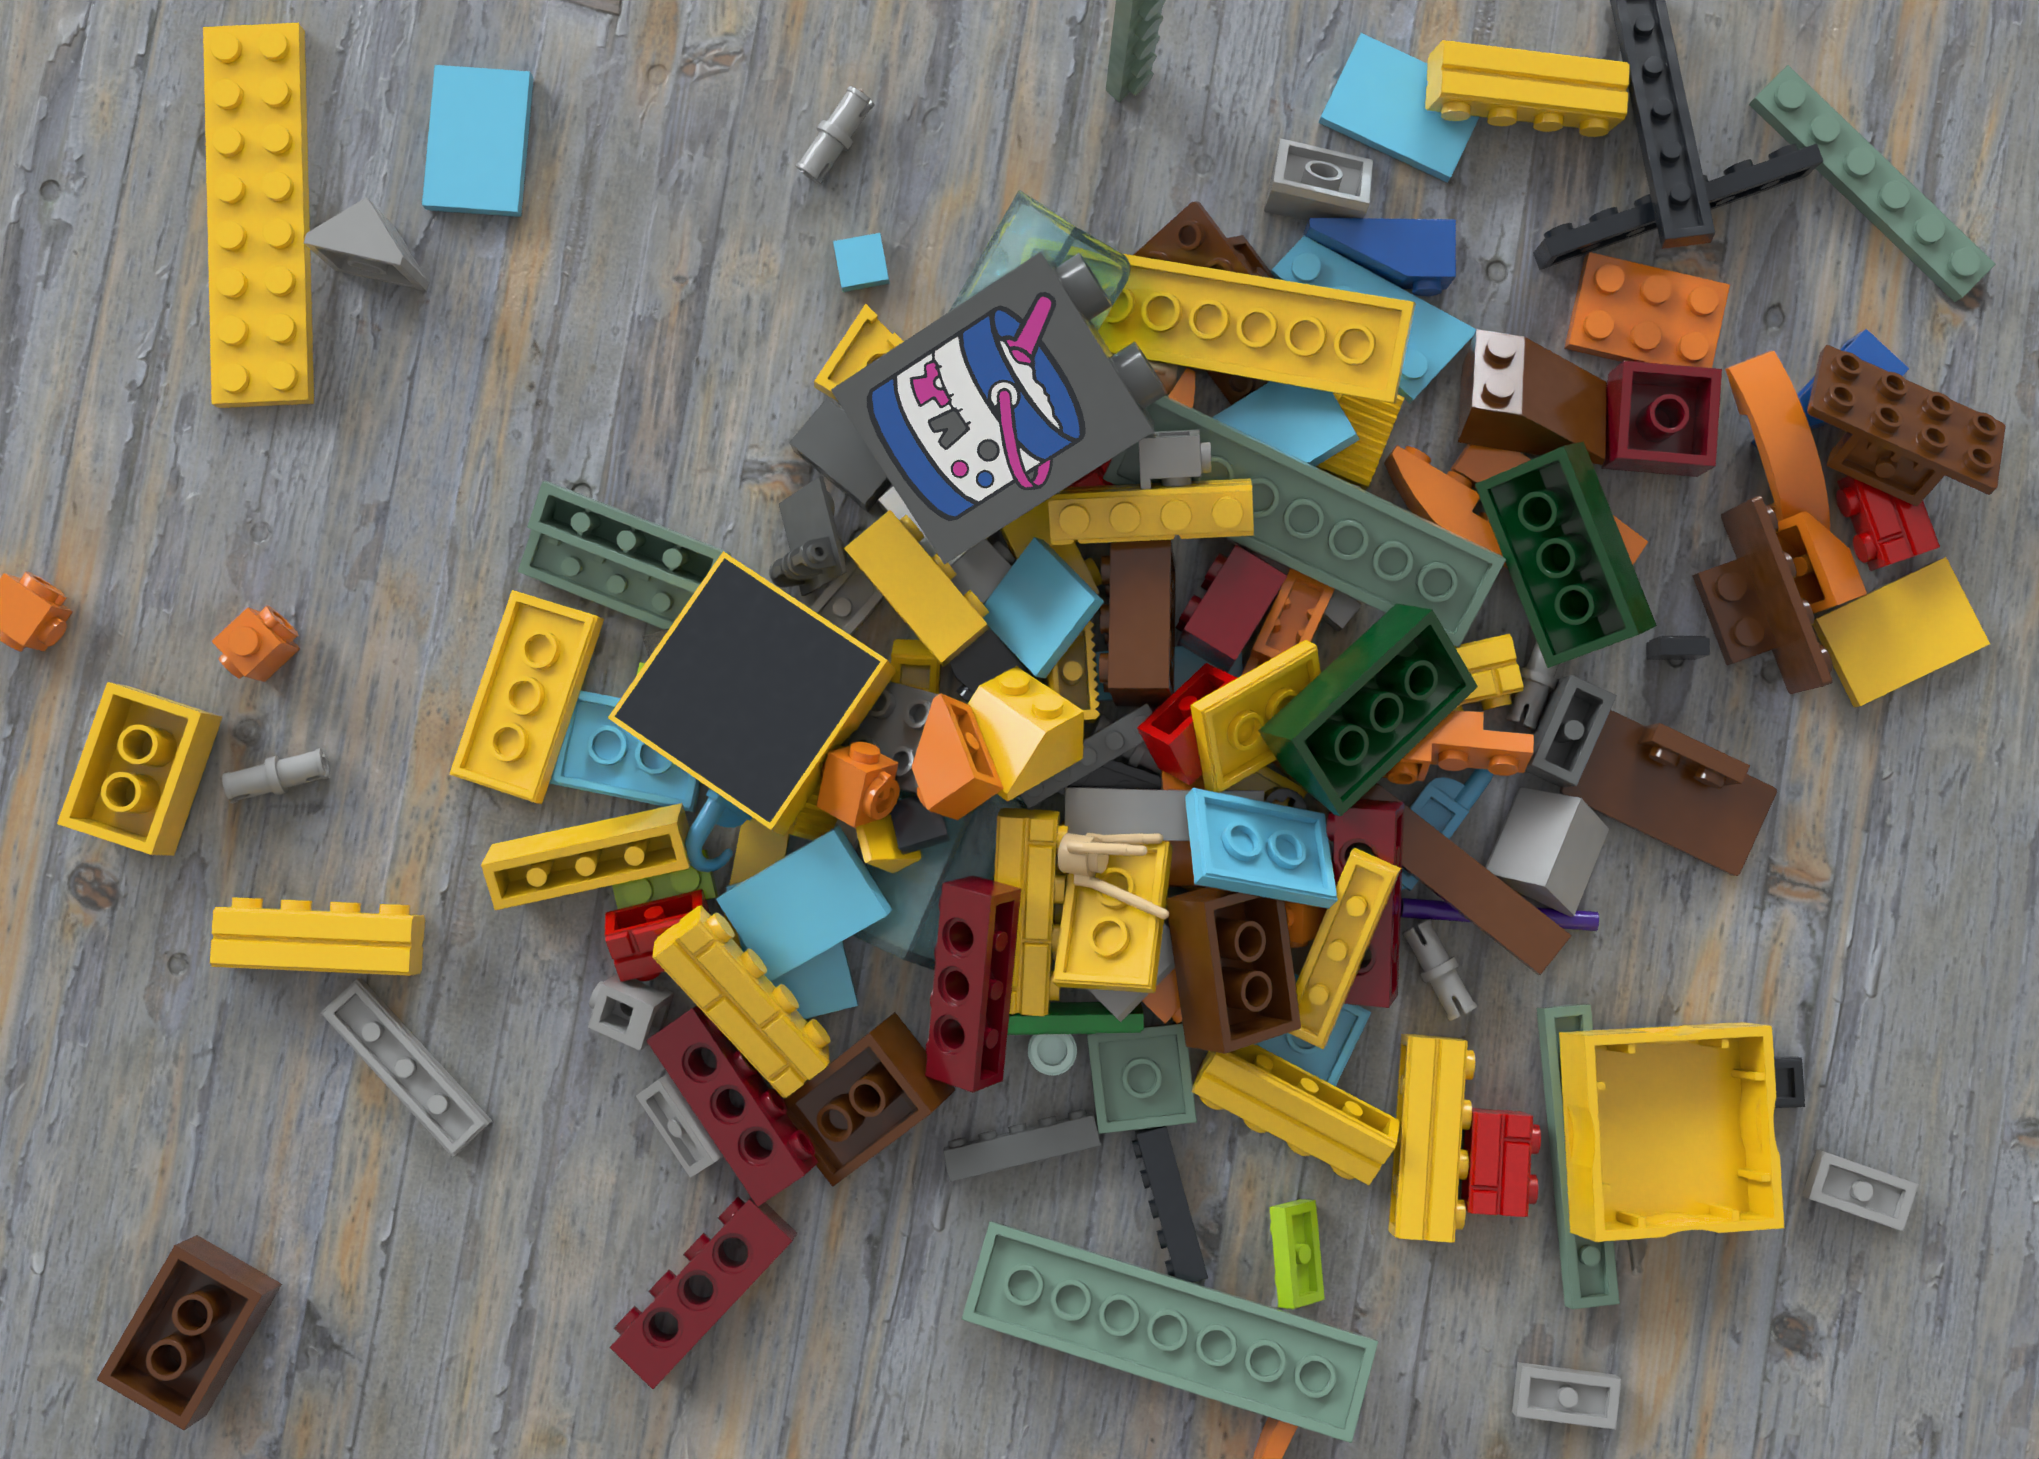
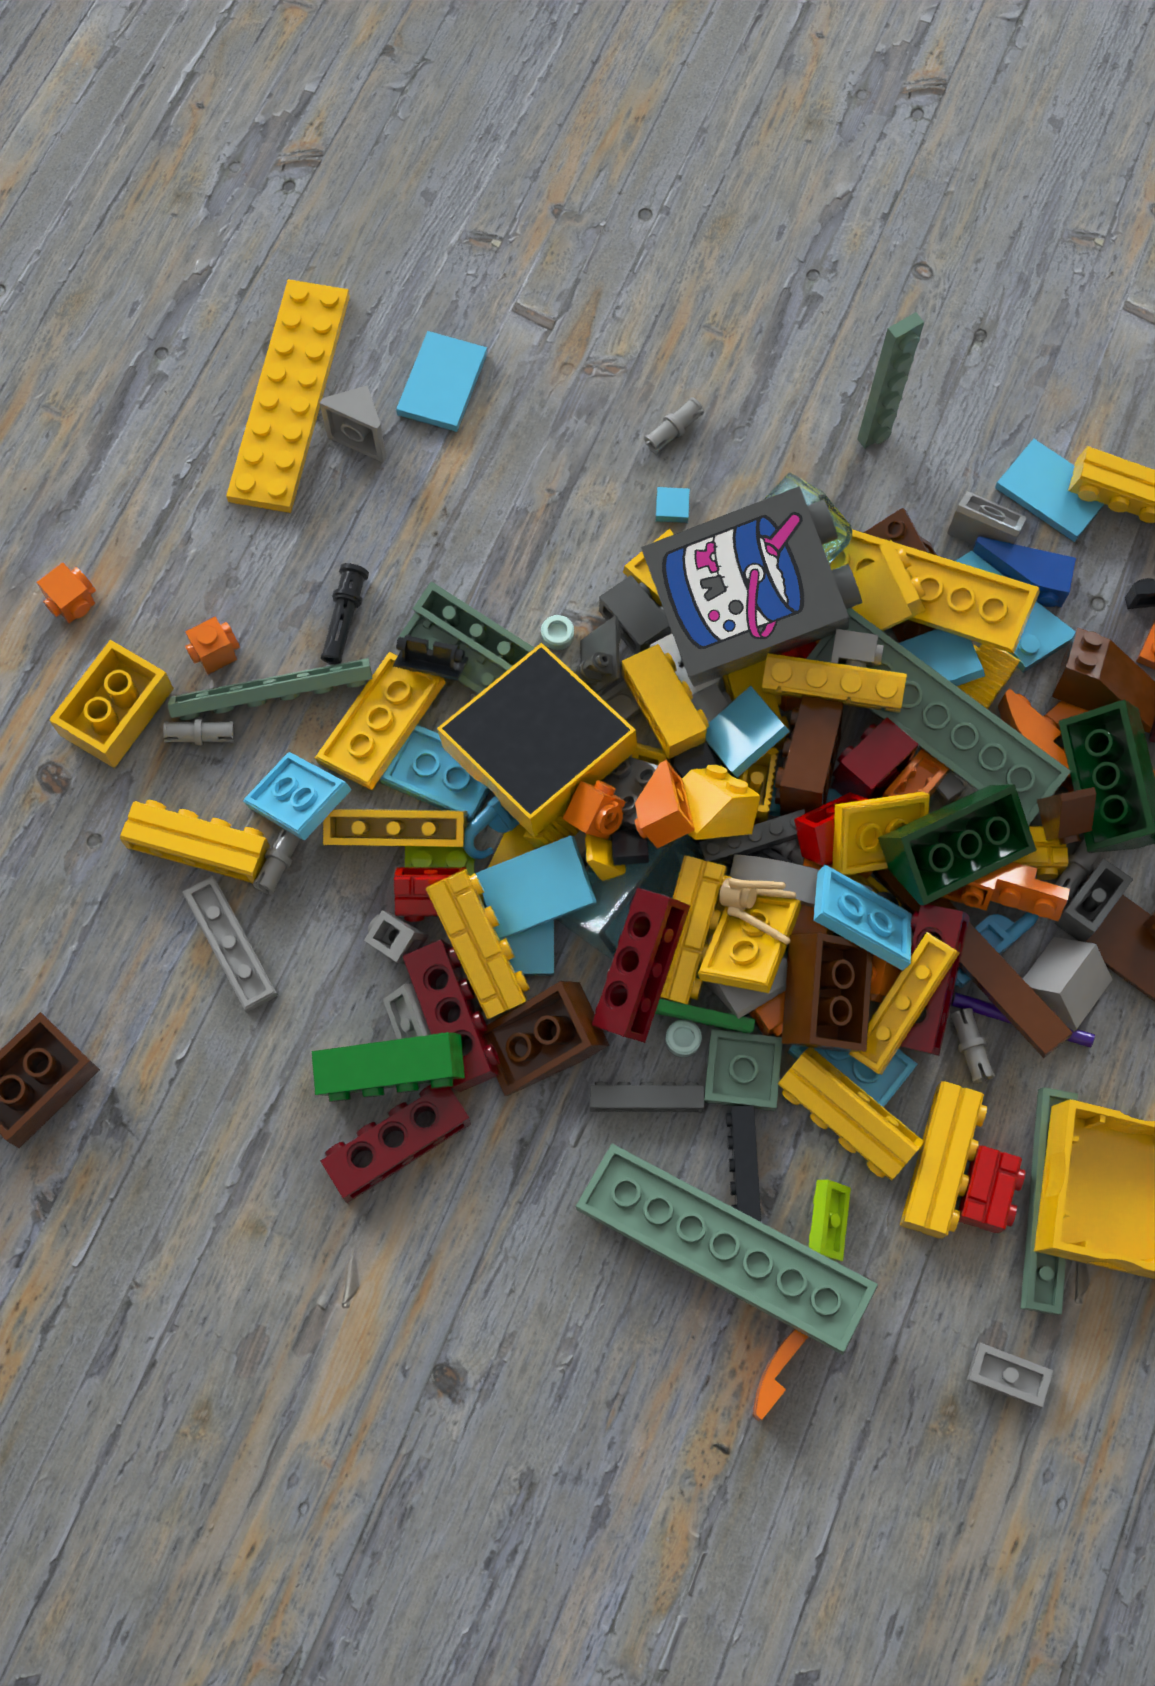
camera: 15 degrees right, 15 degrees down
(358, 687) = (258, 691): none -> sand green plate
(430, 607) = (347, 598): none -> black pin
(439, 846) = (297, 795): none -> medium azure tile
(439, 934) = (276, 862): none -> light grey pin
(572, 597) = (442, 661): none -> black hinge
(666, 1199) = (388, 1064): none -> green brick
(743, 501) = (557, 632): none -> light aqua tile
(1195, 347) = (887, 589): none -> yellow bracket
(1511, 627) = (1067, 815): none -> reddish brown slope

